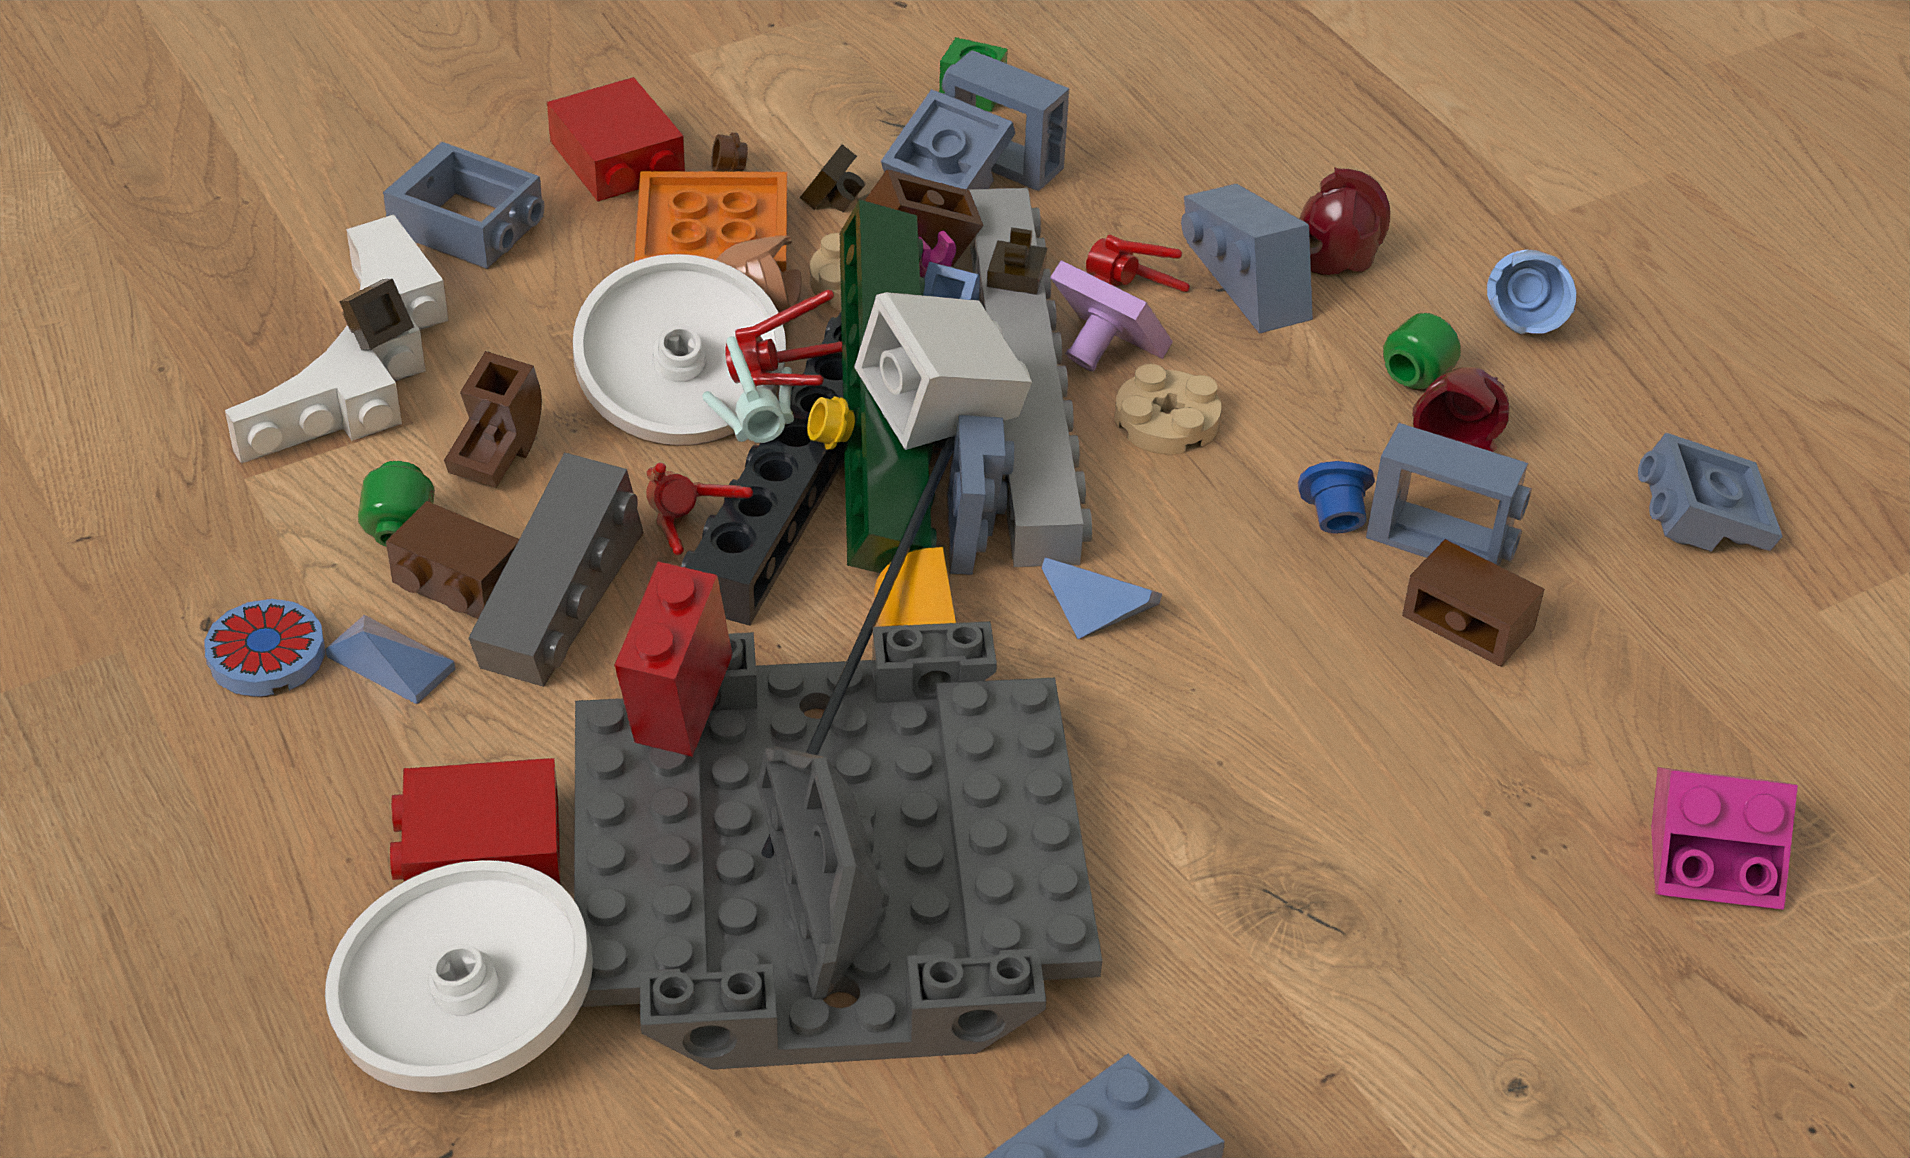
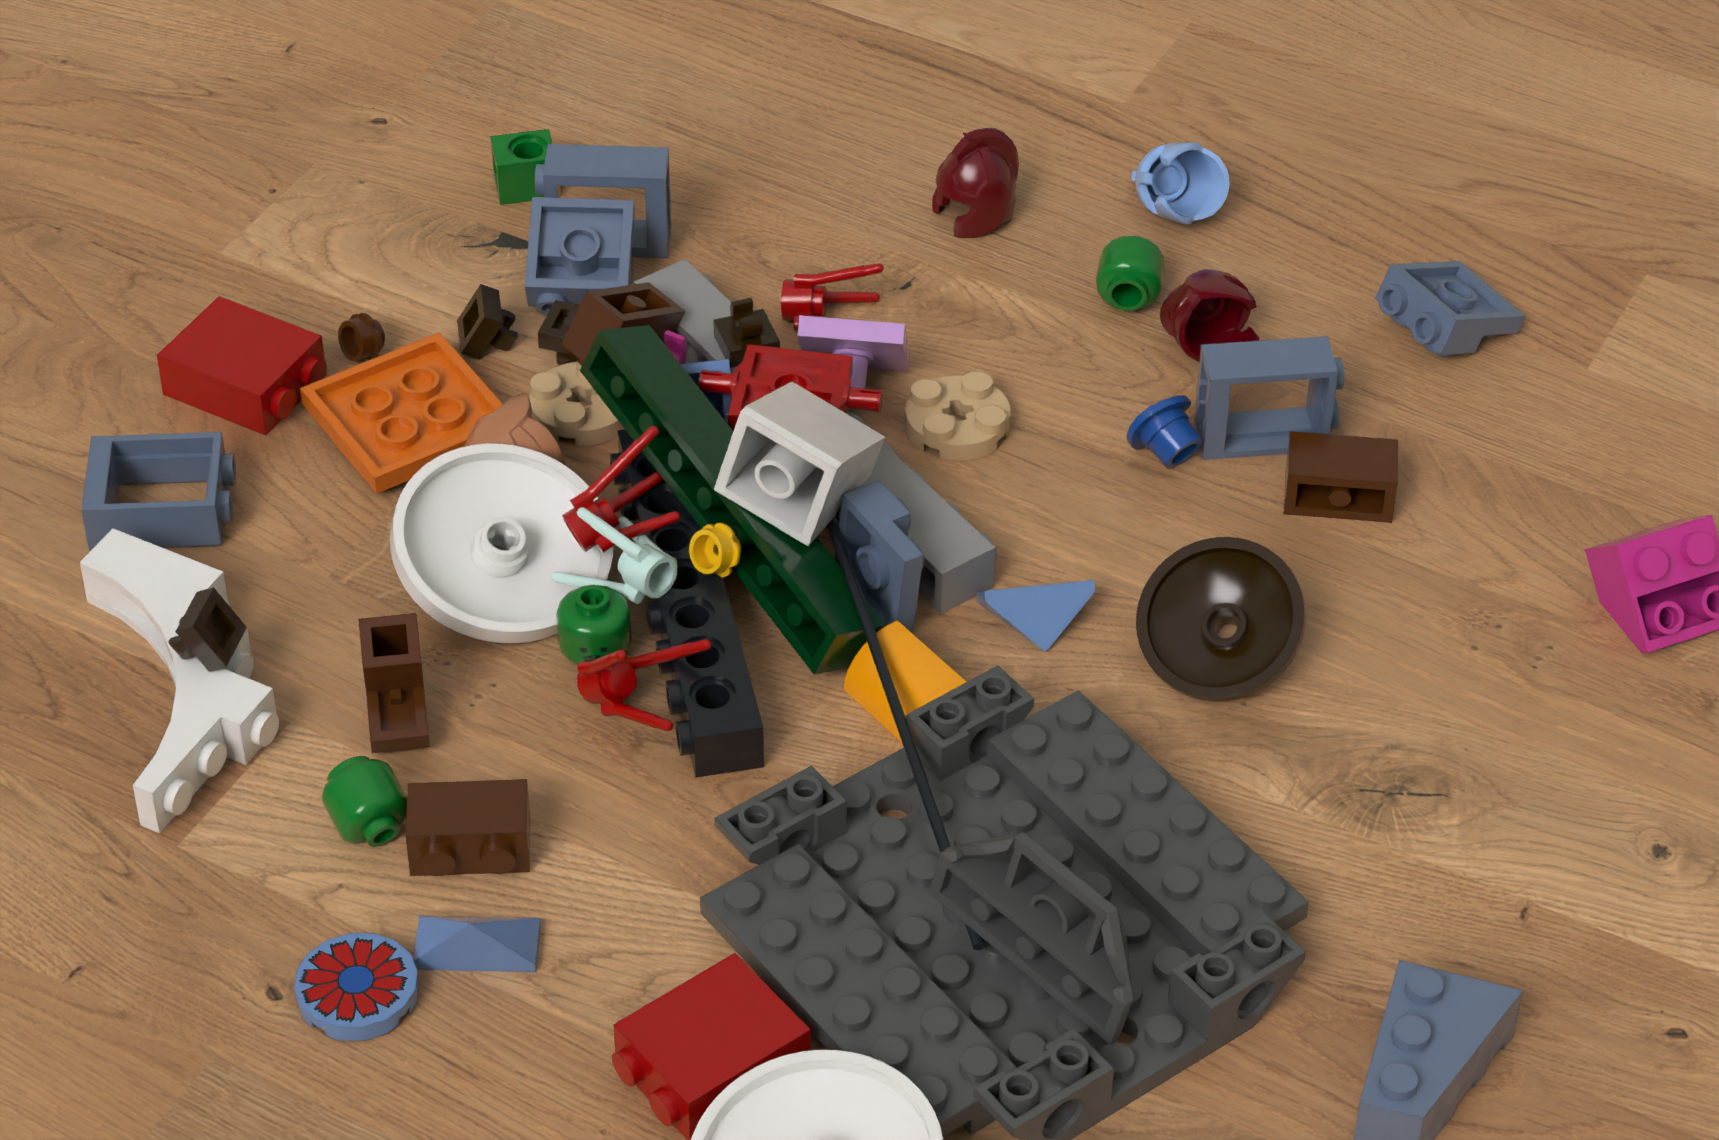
camera: 30 degrees left, 0 degrees up
(558, 570) = (580, 791): dark grey wedge -> none
(674, 658) = (810, 812): red brick -> none
(697, 444) = (593, 623): none -> green head
(1029, 318) = (771, 368): none -> red plate
(1224, 653) = (1201, 592): none -> dark brown dish
(1253, 254) = (921, 238): sand blue wedge -> none

